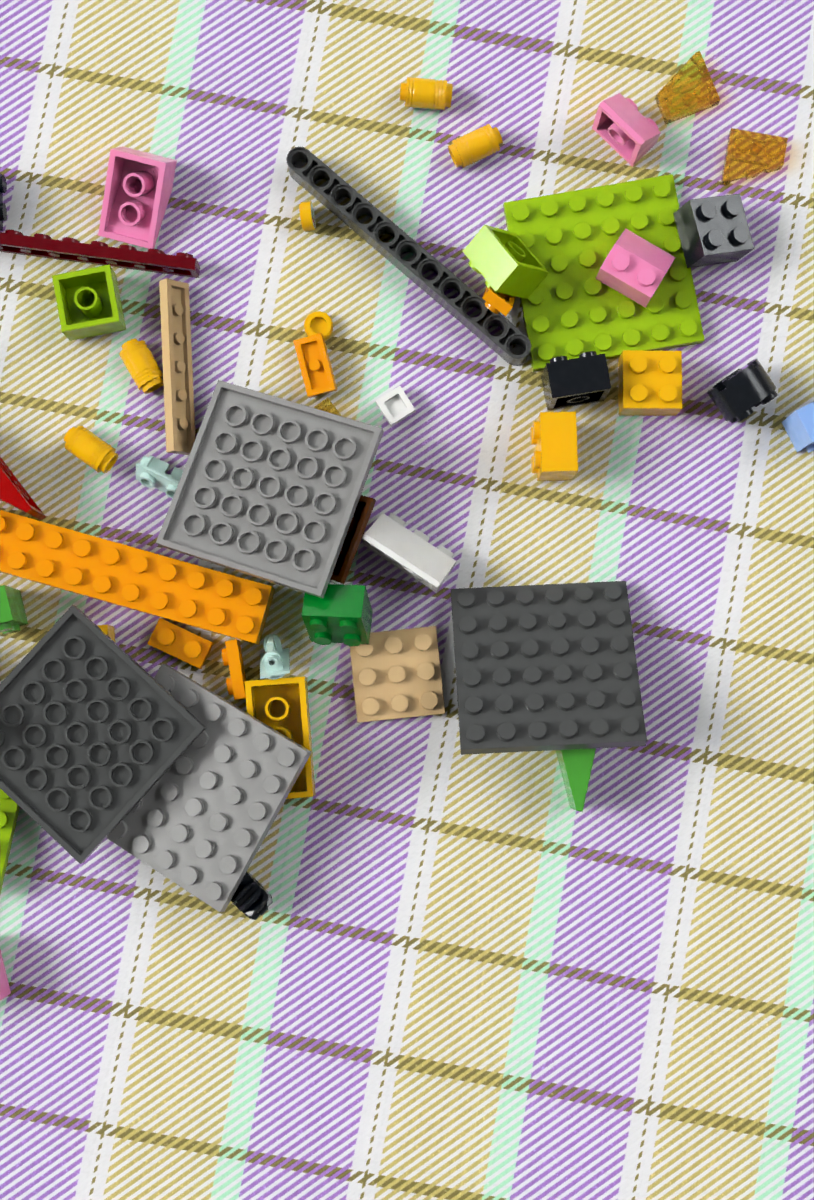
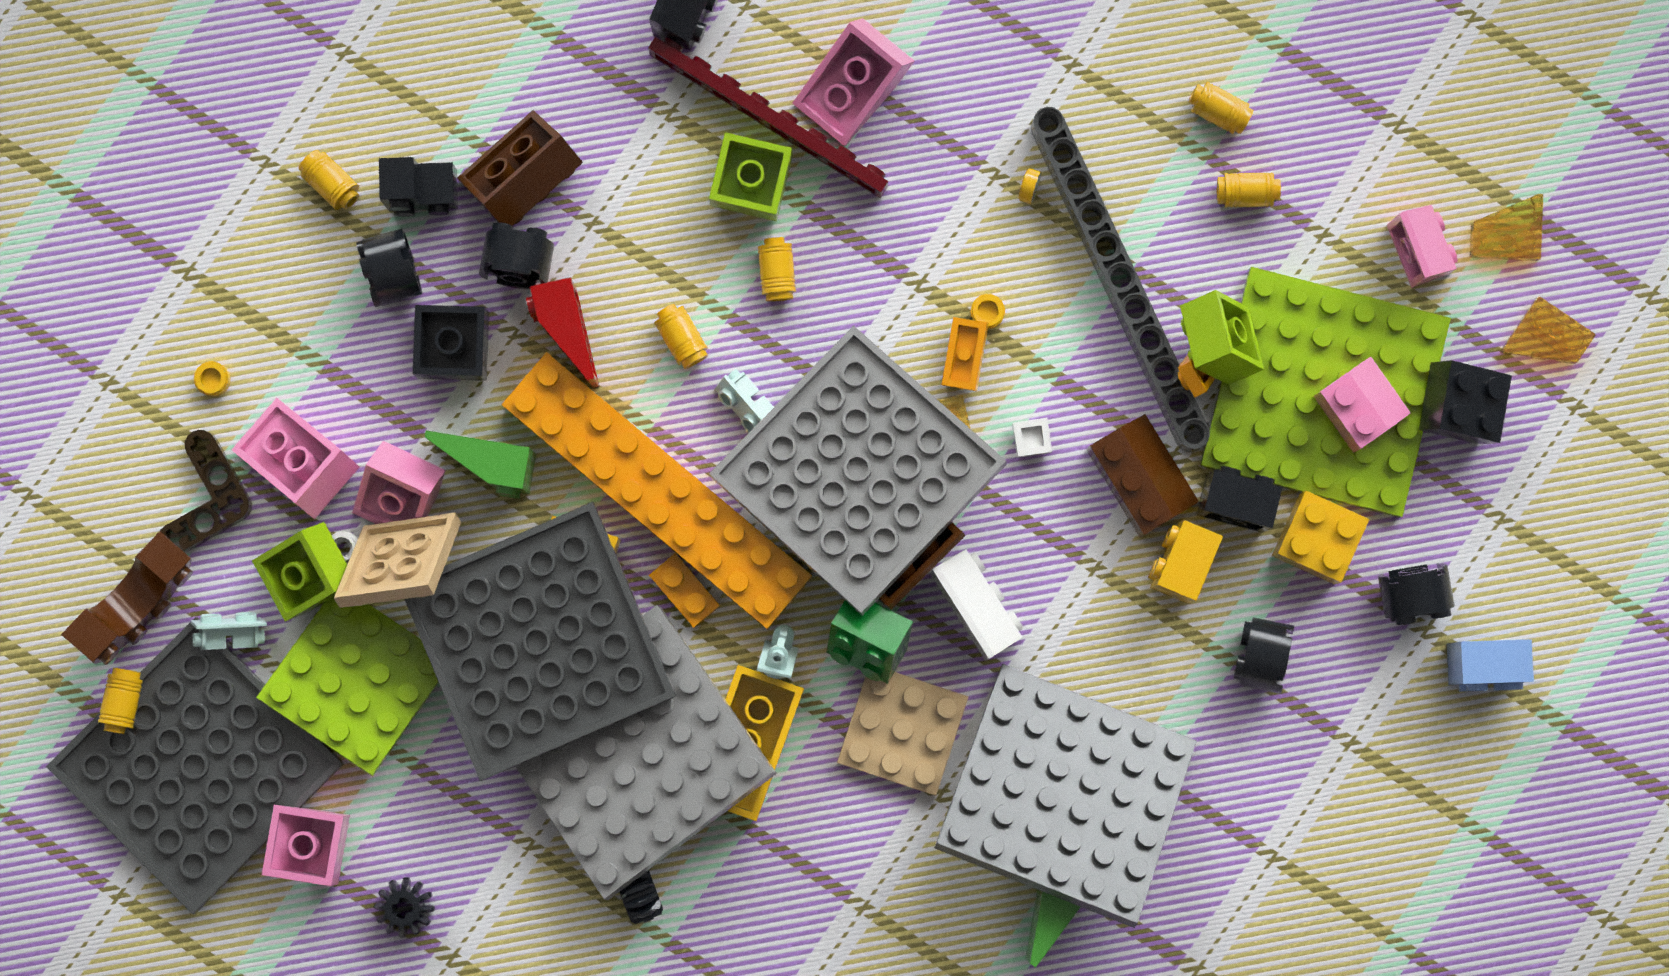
camera: 20 degrees right, 0 degrees up
(70, 976) = (396, 897): none -> black gear
(177, 366) = (814, 288): tan plate -> none
(233, 658) = (726, 661): light orange plate -> none
(492, 397) = (1142, 475): none -> reddish brown slope
(649, 490) = (1265, 654): none -> black brick

